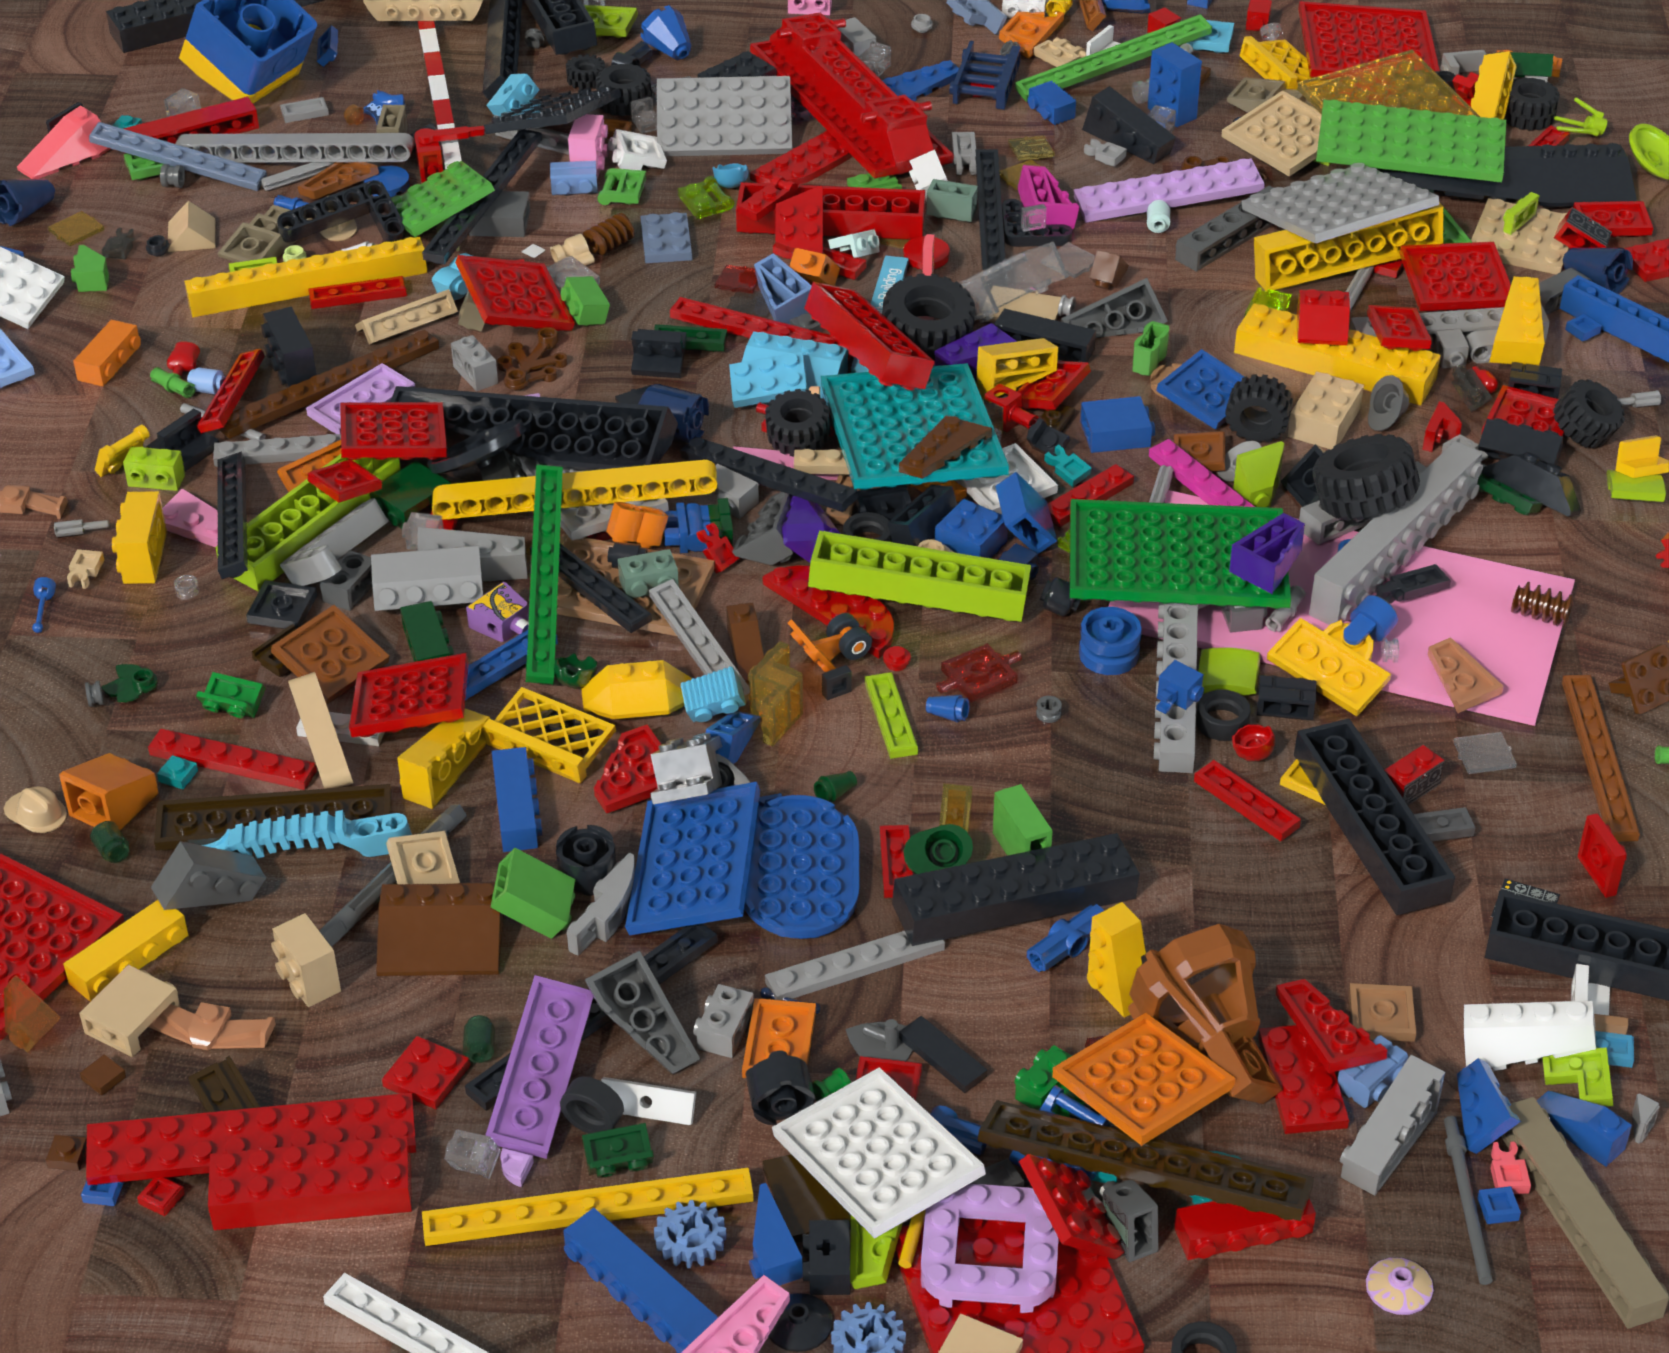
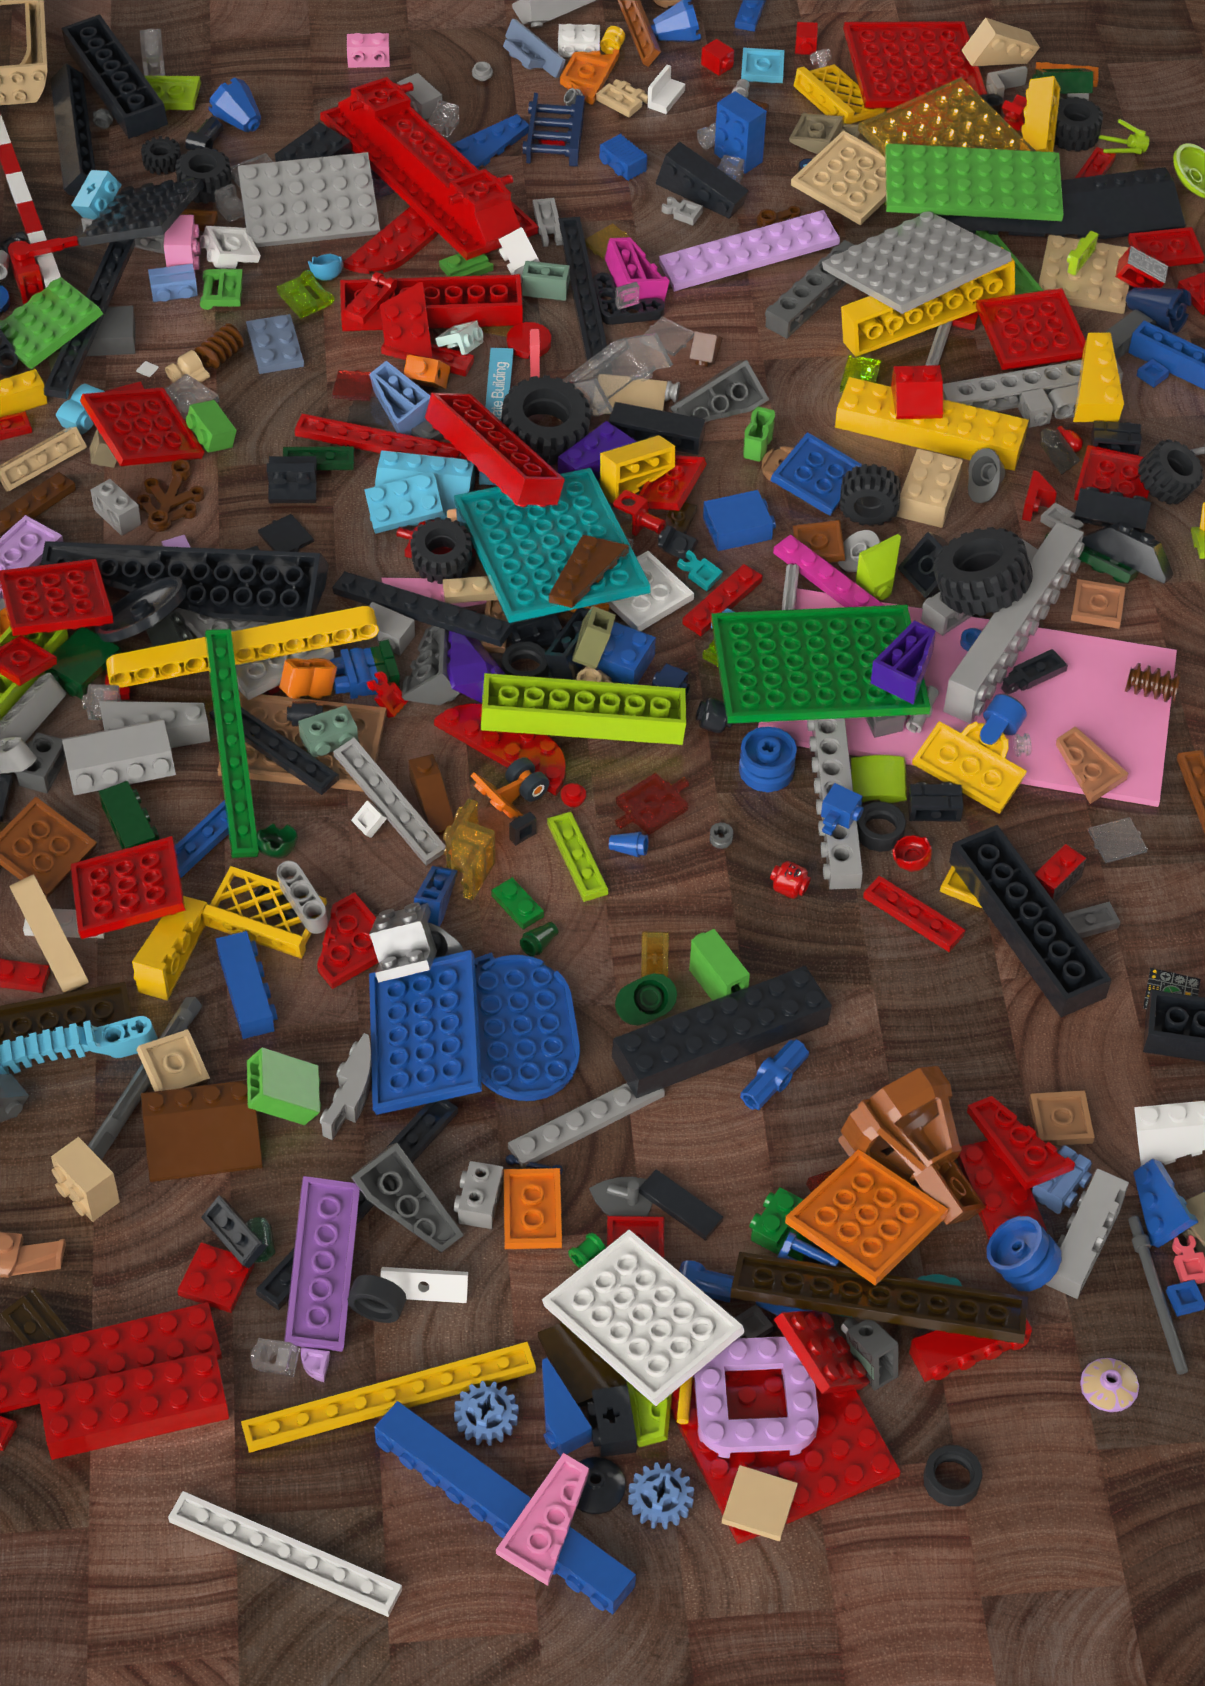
camera: 10 degrees left, 10 degrees up
(452, 1027) = (234, 1231): none -> black tile
(499, 613) = (194, 785): medium lavender torso -> none
(585, 856) = (324, 1040): black brick -> none
(589, 719) = (304, 907): none -> light grey beam
(617, 1150) = (405, 1337): dark green bracket -> none
(635, 690) = (341, 856): yellow wedge -> none
(677, 657) = (369, 819): none -> white plate
(685, 406) = (322, 539): dark blue cylinder -> none
(713, 694) = (411, 856): medium azure brick -> none
(779, 1087) = (543, 1261): black brick -> none
(818, 752) = (517, 903): none -> green plate
(892, 857) = (603, 996): red plate -> none
(940, 507) = (593, 637): none -> olive slope
(1026, 513) = (671, 630): blue brick -> none
(1031, 148) = (610, 210): clear yellow piece -> none
(1115, 955) = (824, 1096): yellow wedge -> none
(1116, 755) = (790, 879): none -> red head
(1117, 55) = (678, 98): bright green plate -> none
(1158, 216) = (743, 281): light aqua brick -> none
(1317, 1135) = (1024, 1253): none -> blue wheel
(1399, 327) = (988, 395): red plate -> none
(1459, 30) = (999, 45): none -> tan wedge
(1493, 530) = (1098, 603): none -> nougat plate

